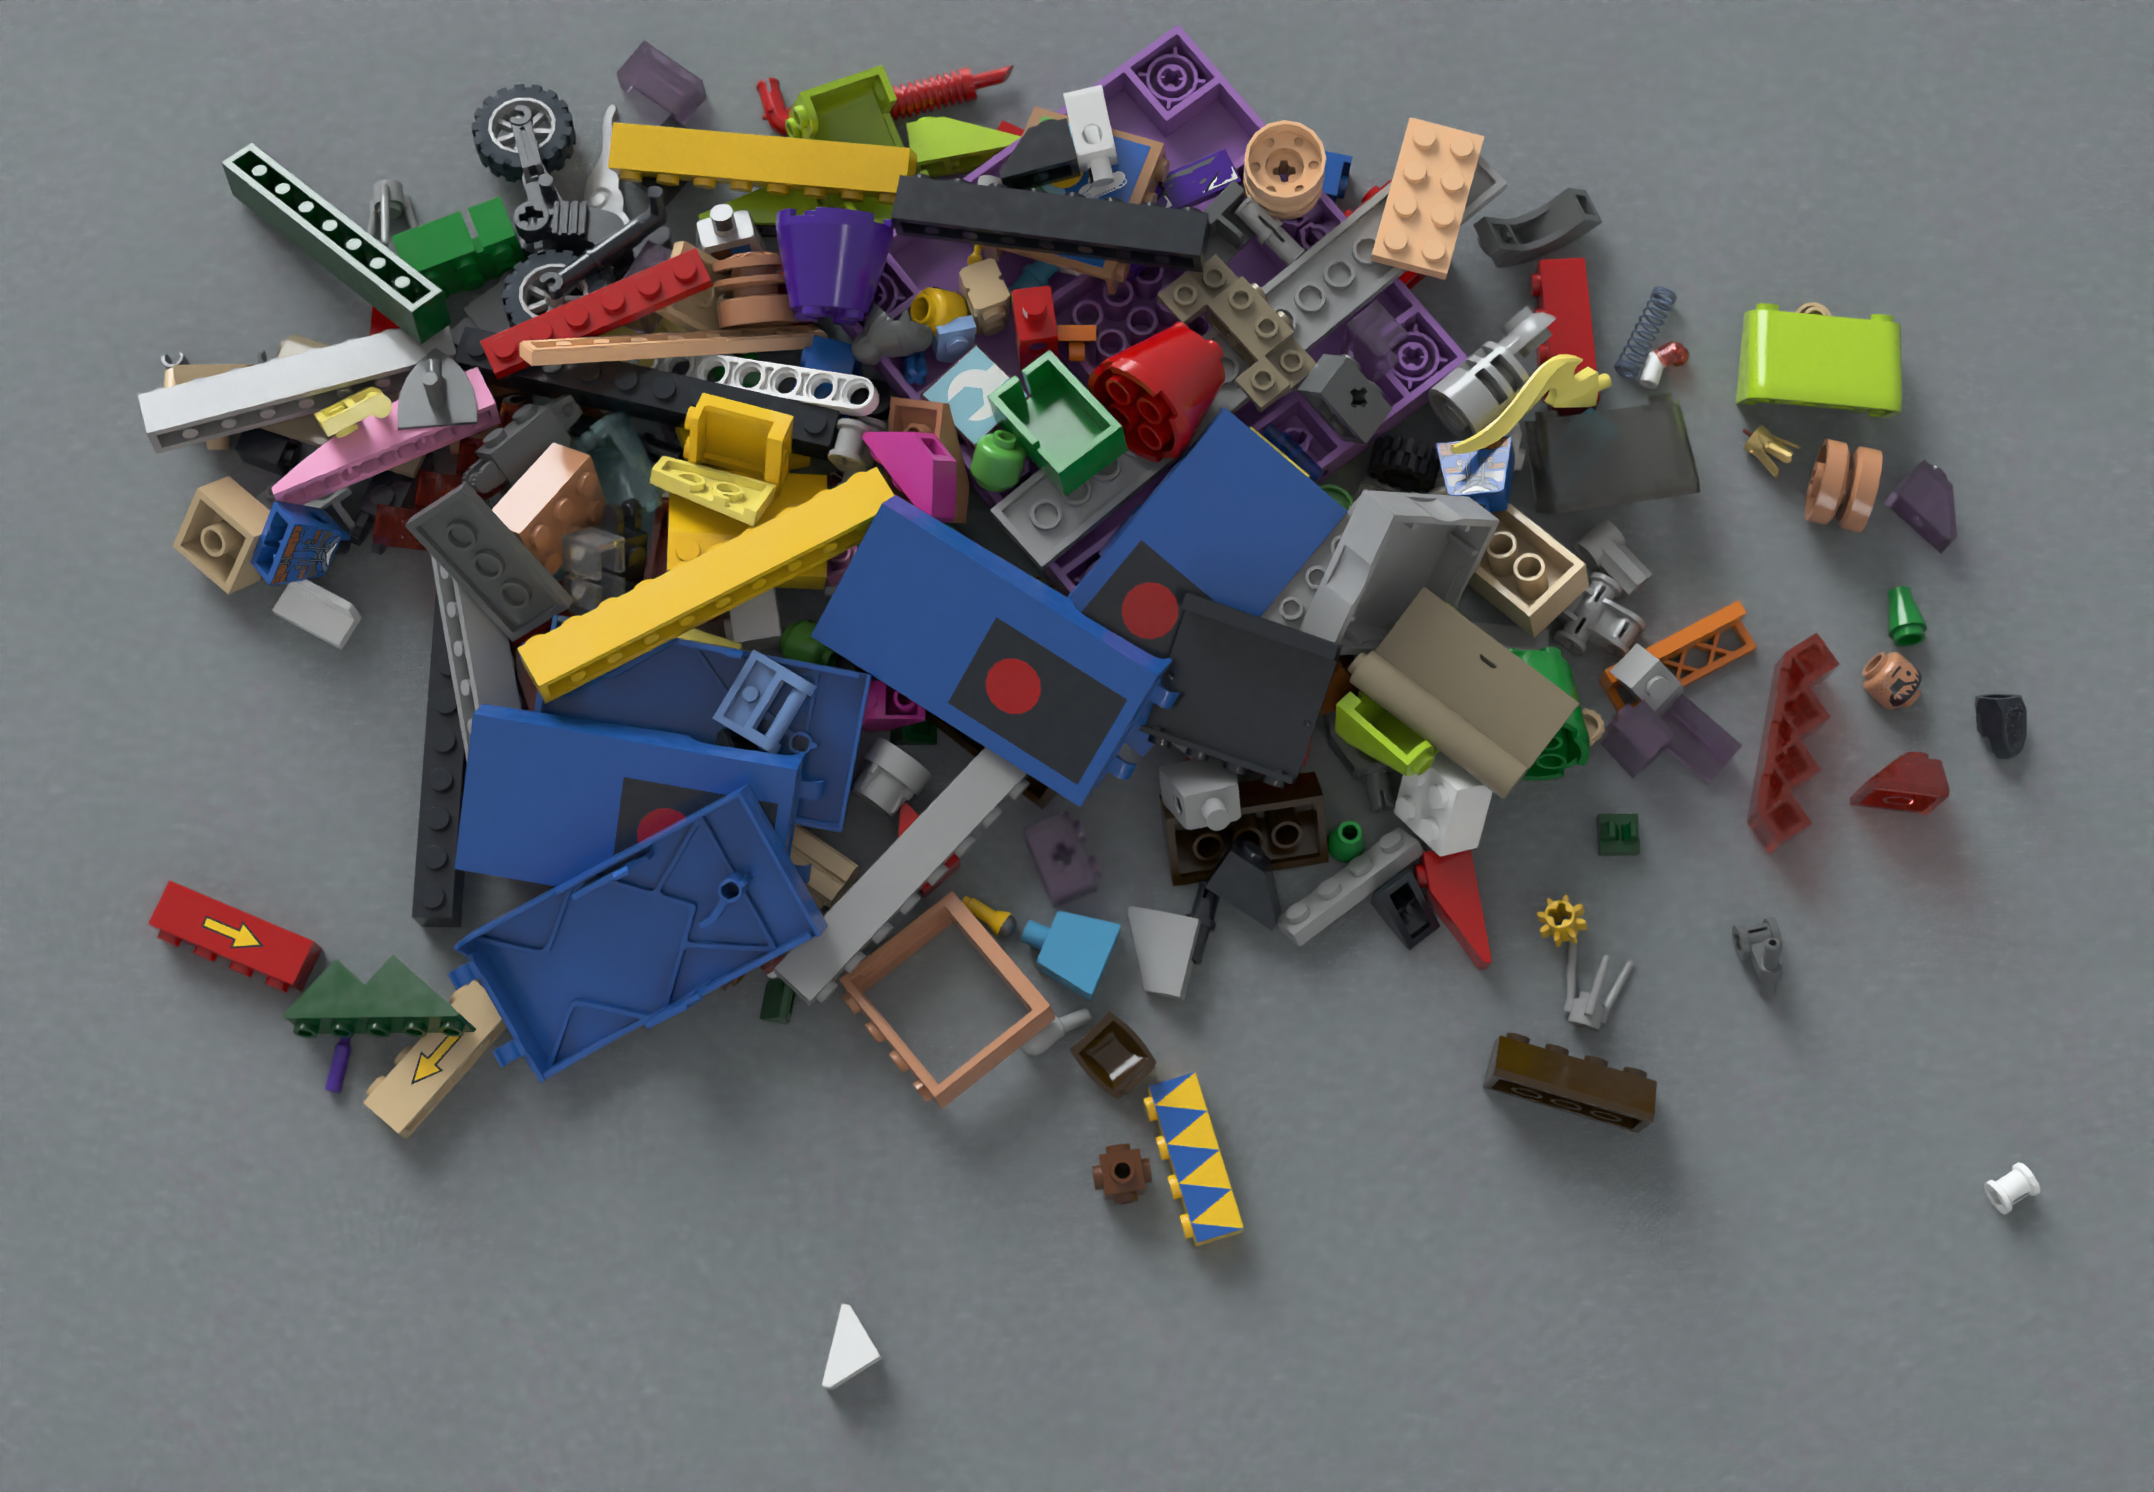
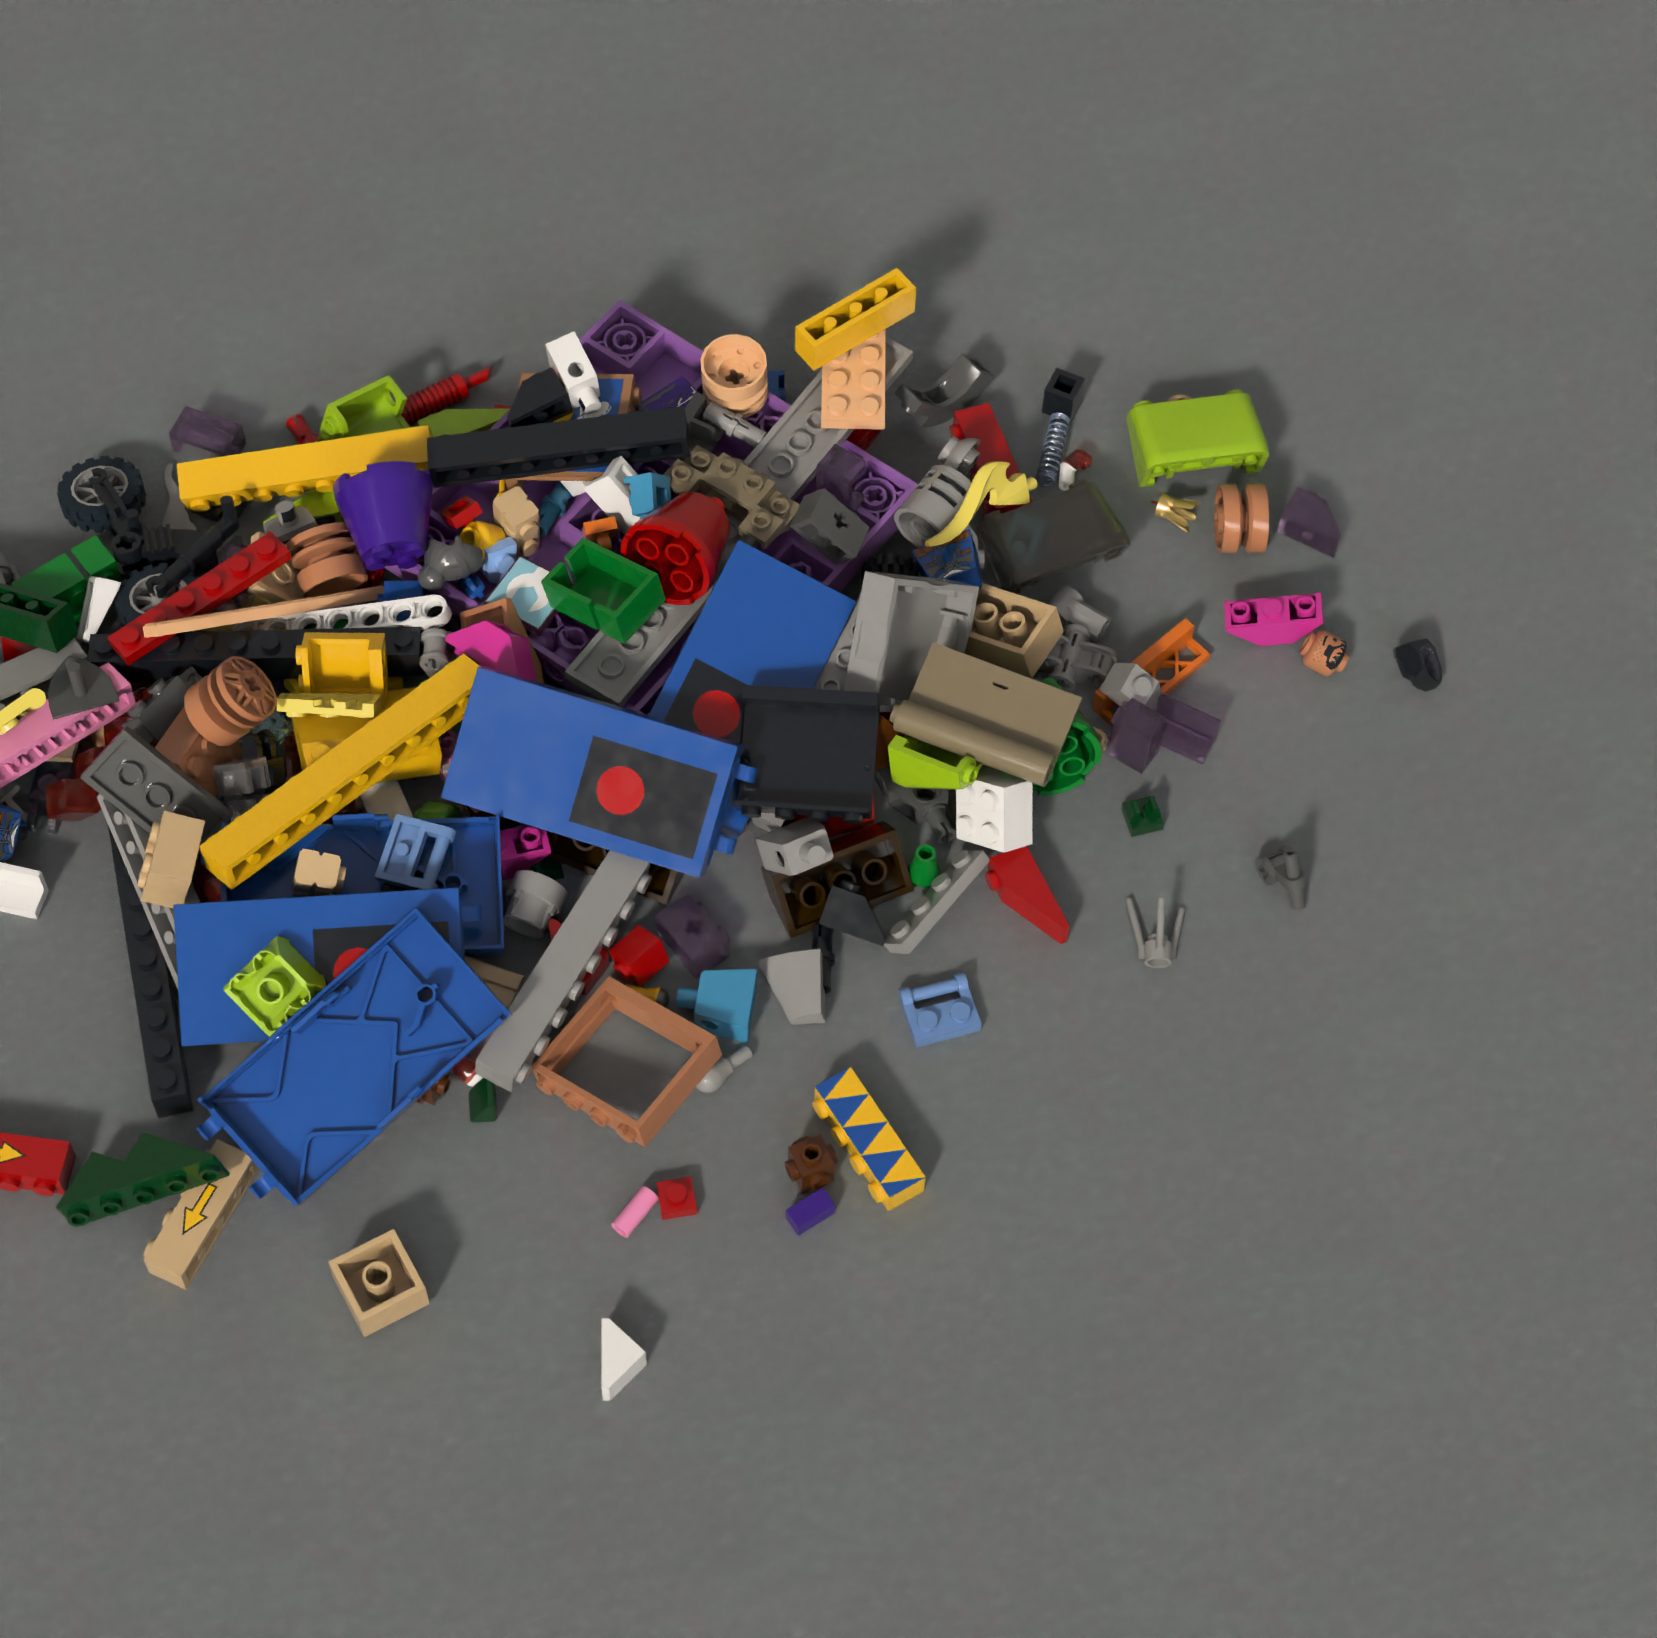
camera: 15 degrees left, 15 degrees down
(338, 1066) = (113, 1236): dark purple piece -> none
(485, 281) = (97, 602): none -> white slope
(488, 649) = (170, 859): none -> tan brick
(569, 832) = (275, 985): none -> lime slope
(596, 465) = (230, 701): none -> nougat wheel
(610, 1195) = (379, 1282): none -> tan brick
(648, 703) = (317, 874): none -> tan brick
(913, 1177) = (634, 1211): none -> bright pink axle
(921, 271) = (461, 512): none -> red plate
(963, 1171) = (676, 1198): none -> red plate
(992, 871) = (638, 956): none -> red brick
(998, 461) = (561, 633): bright green head -> none
(1033, 323) = (559, 521): red torso -> none
(1107, 1228) = (810, 1211): none -> dark purple piece
(1113, 1056) = (778, 1074): dark brown piece -> none
(1114, 301) = (612, 493): none -> white panel
(1139, 314) = (648, 492): none -> dark azure brick
(1317, 1032) = (943, 1019): none -> medium blue plate
(1405, 909) = (986, 907): black slope -> none
(1445, 135) = (855, 319): none -> yellow brick
(1569, 928) = (1117, 886): yellow gear -> none
(1570, 1083) = (1161, 1007): dark brown slope -> none
(1677, 265) = (1063, 393): none -> black brick
(1783, 758) = (1257, 724): clear red brick -> none
(1845, 624) = (1274, 618): none -> dark pink slope
(1905, 619) = (1330, 608): green cone -> none
(1905, 785) = (1357, 726): clear red slope -> none
(2012, 1188) = (1539, 1001): white bush -> none

